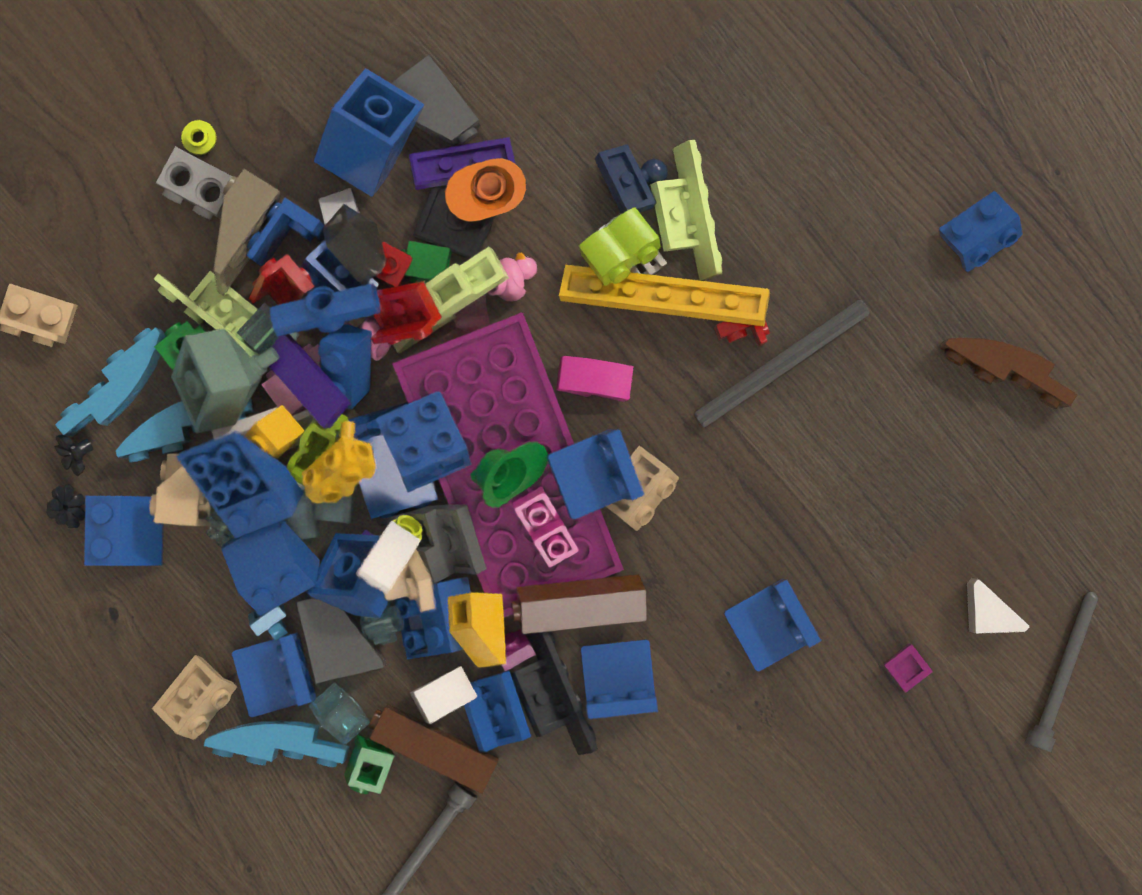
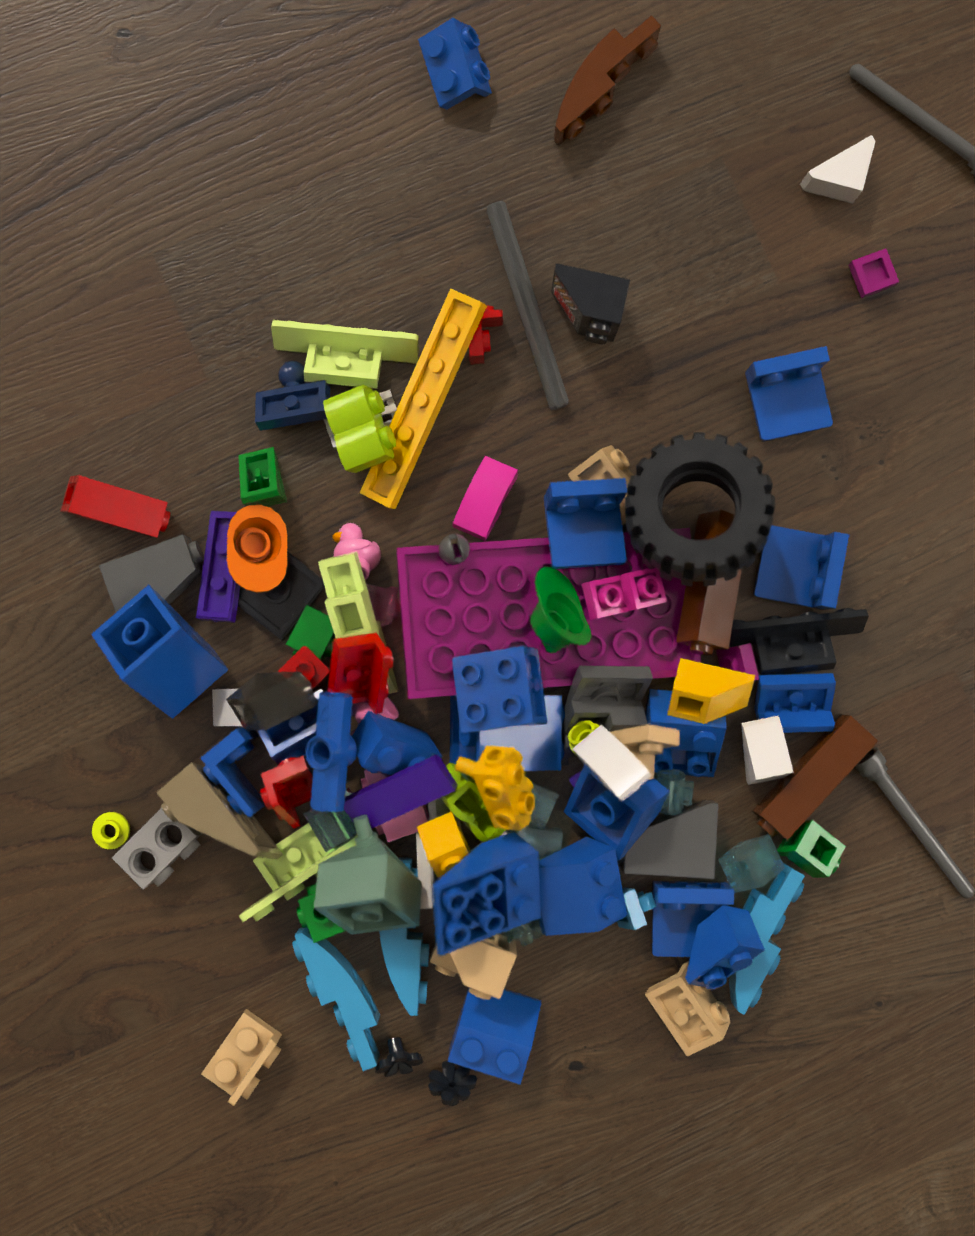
camera: 75 degrees left, 0 degrees up
(257, 708) = (722, 946): none -> blue slope
(485, 51) = (115, 506): none -> red slope
(533, 356) = (446, 549): none -> dark grey hinge
(551, 172) = (261, 478): none -> green slope
(673, 541) = (705, 462): none -> black tyre
(798, 420) = (590, 301): none -> black slope

